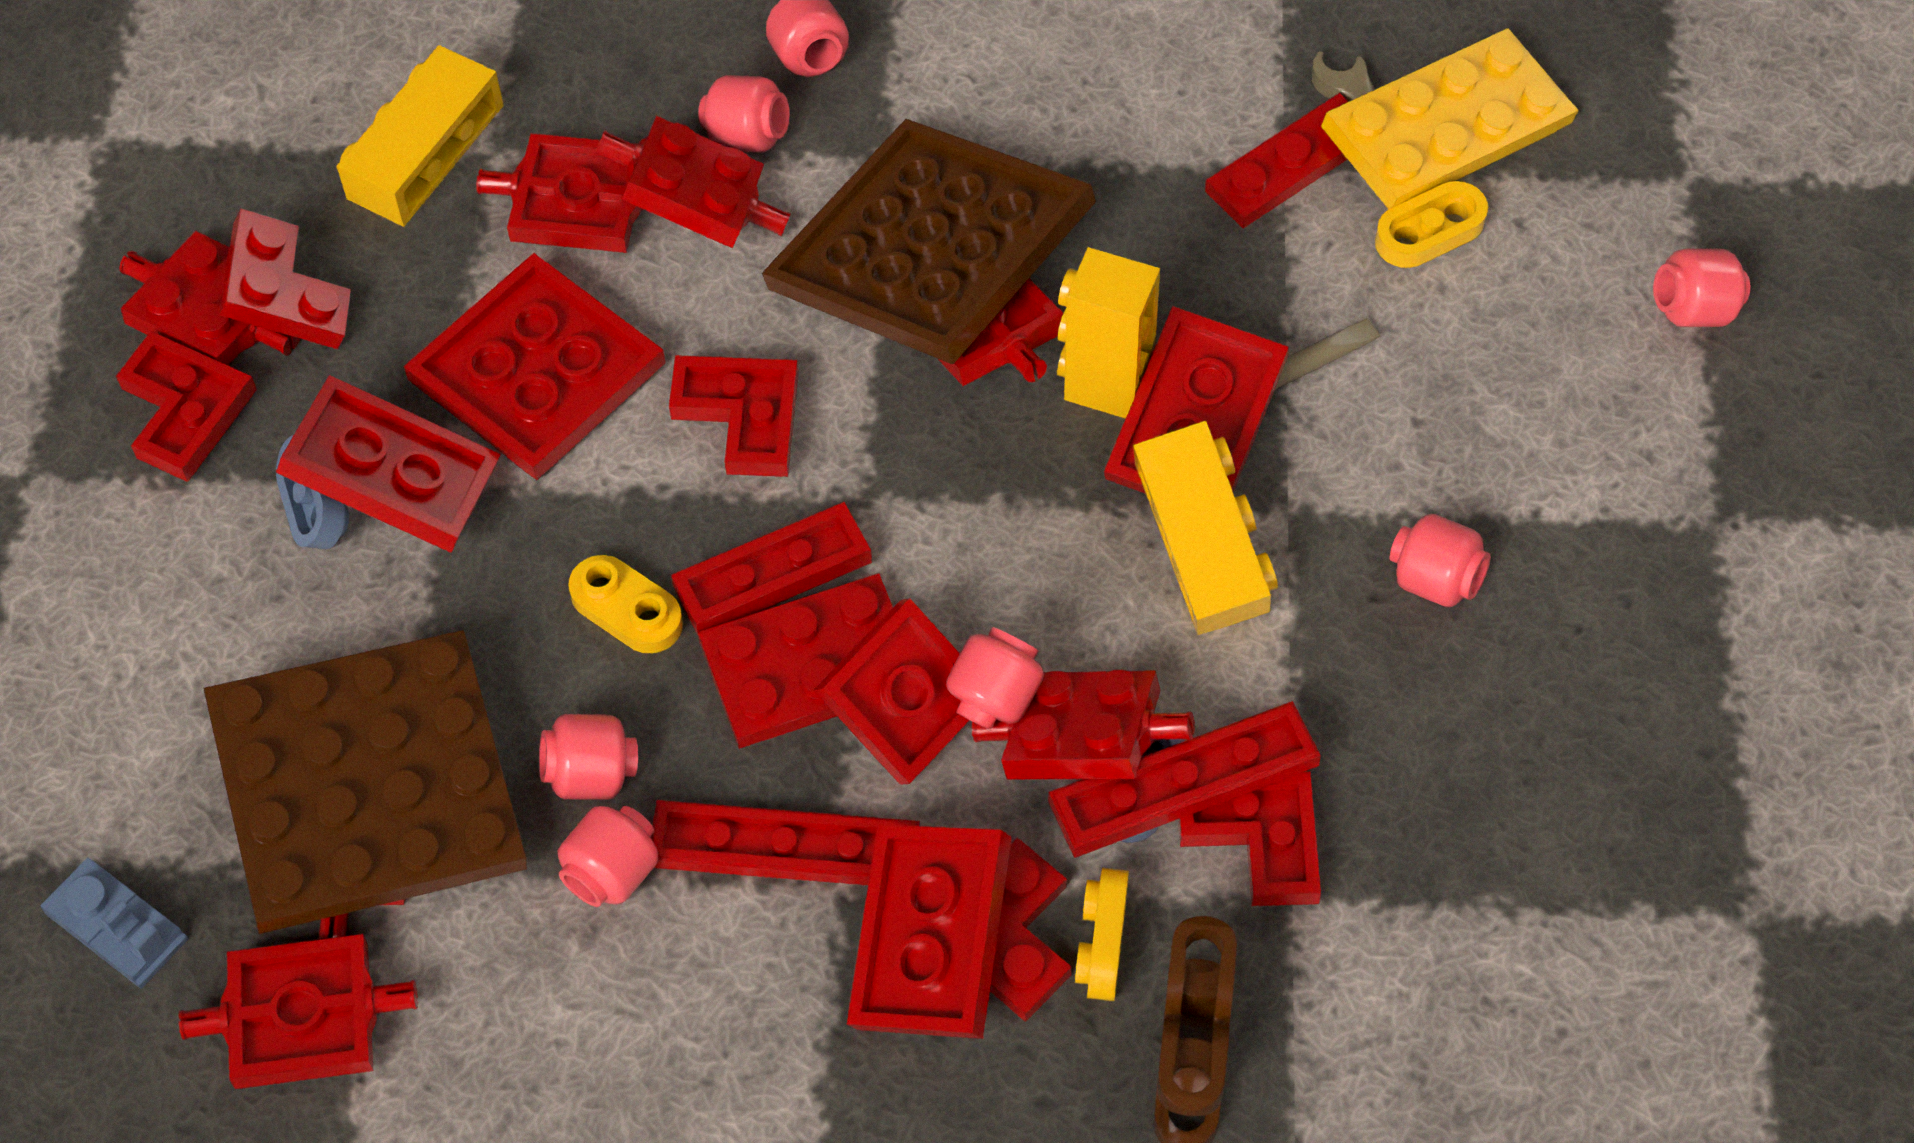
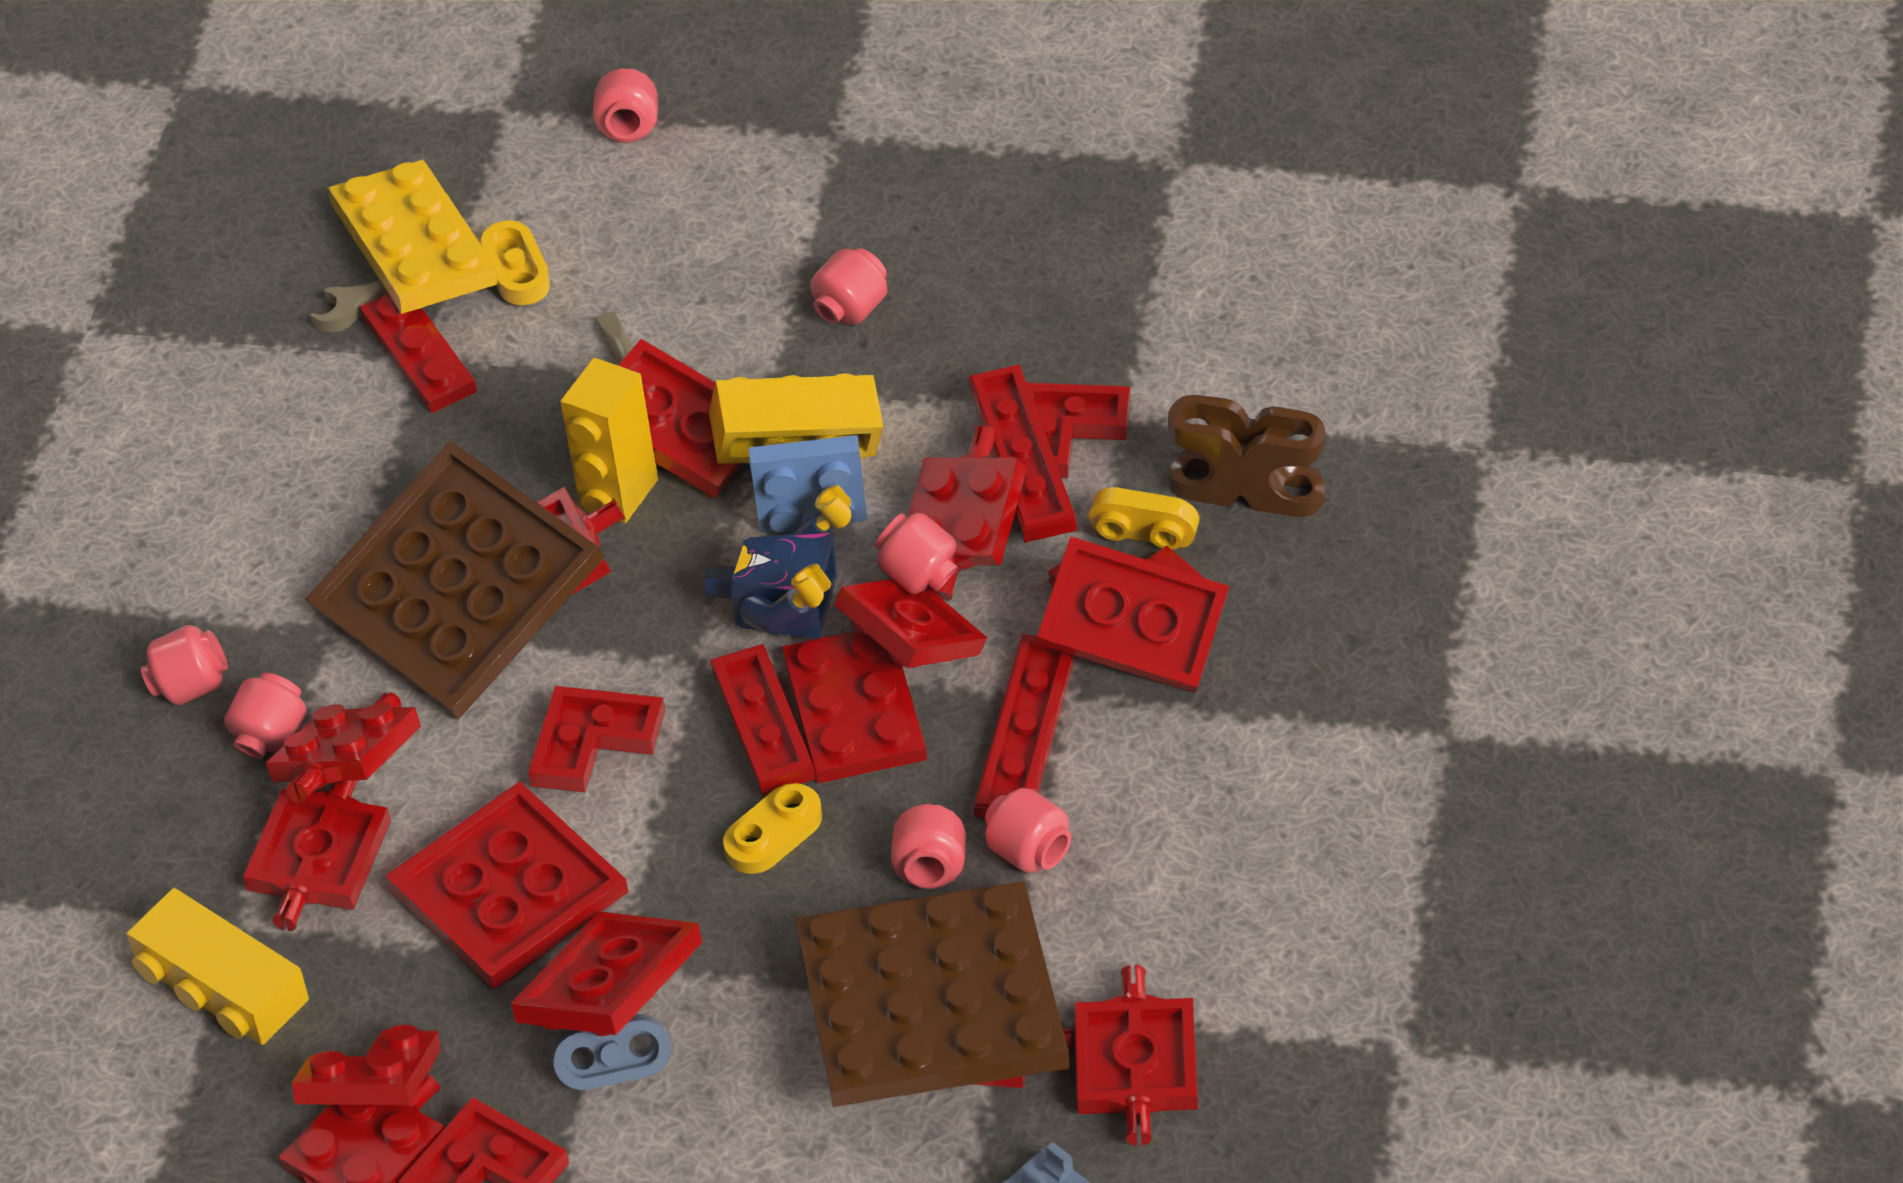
camera: 80 degrees left, 10 degrees down
(963, 555) = (785, 579): none -> dark blue torso
(1090, 547) = (794, 474): none -> medium blue plate

